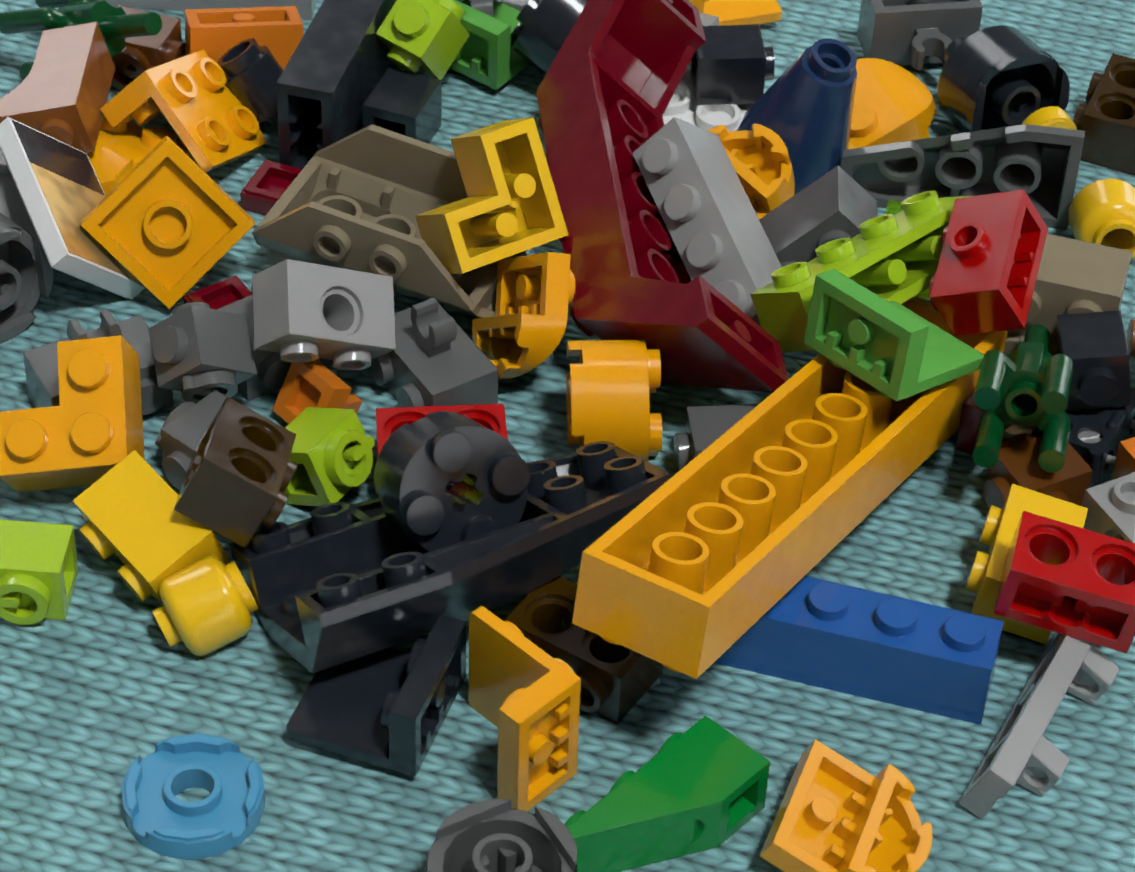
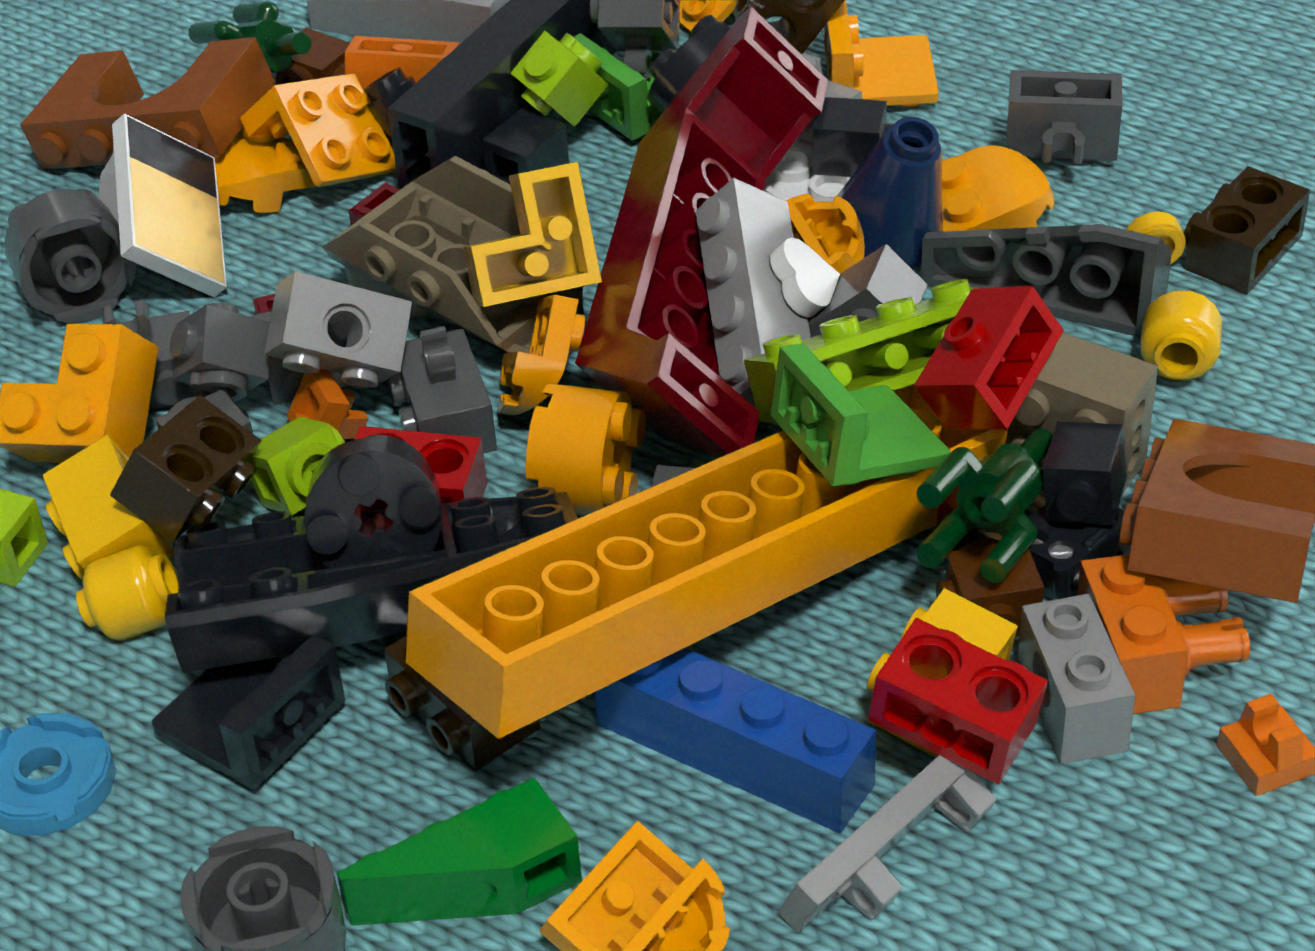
camera: 20 degrees right, 0 degrees up
(167, 221) = (245, 227): light orange bracket -> none
(531, 704) = (359, 760): light orange bracket -> none
(763, 206) = (804, 275): none -> white tile
(998, 80) = (1115, 178): black brick -> none

